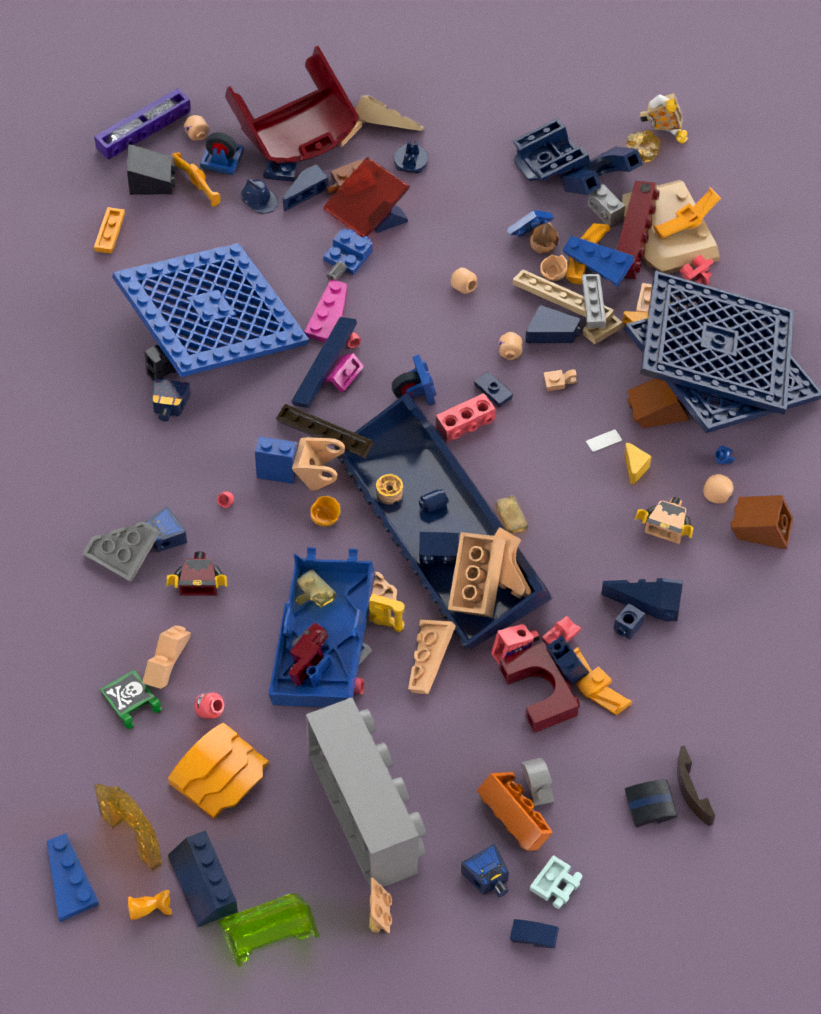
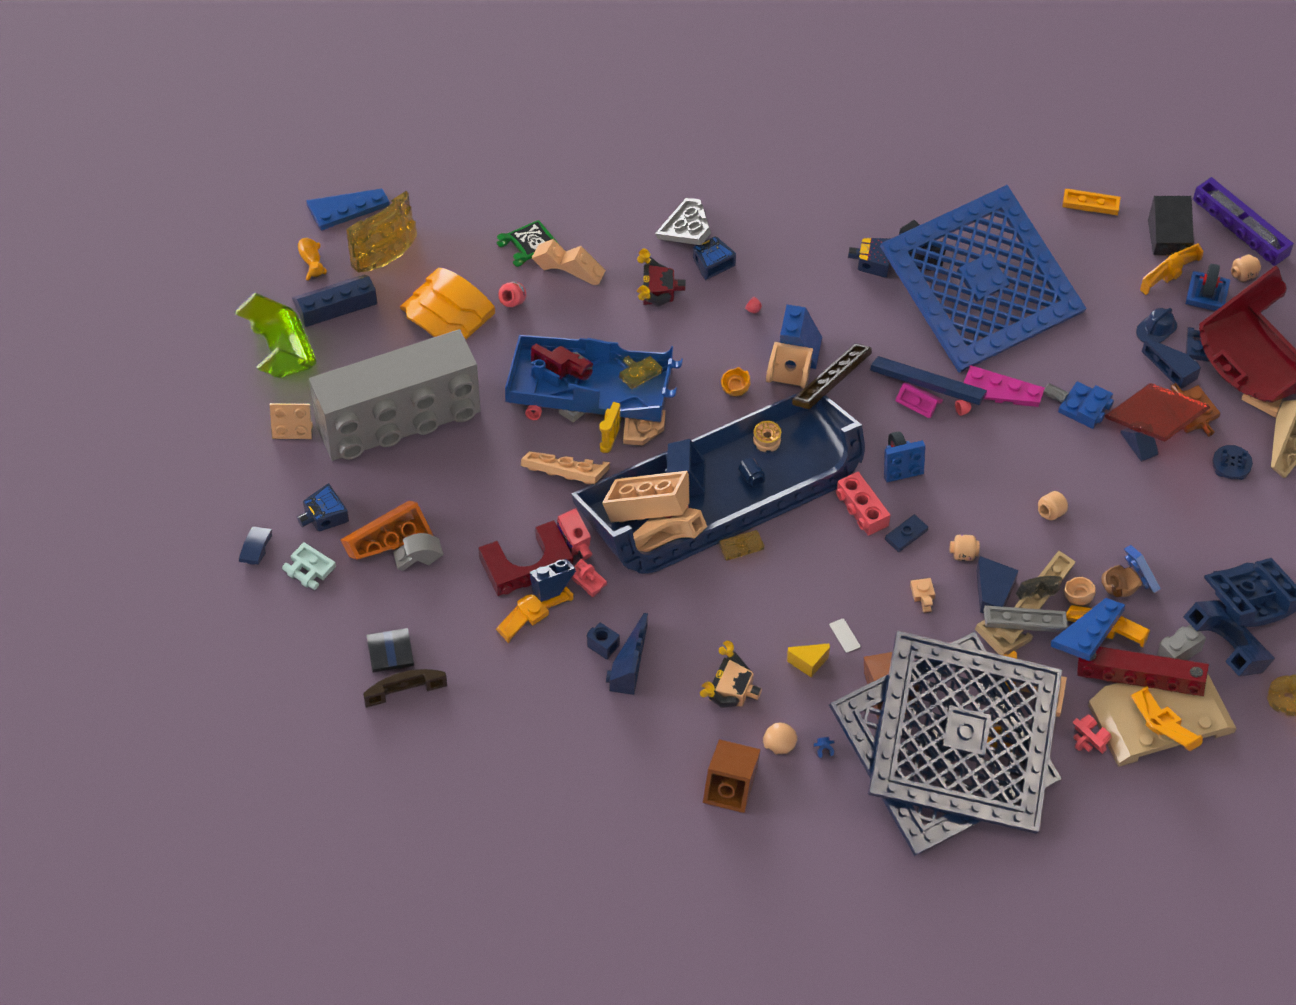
camera: 90 degrees right, 0 degrees up
(562, 291) = (1042, 585): none -> clear smoke slope

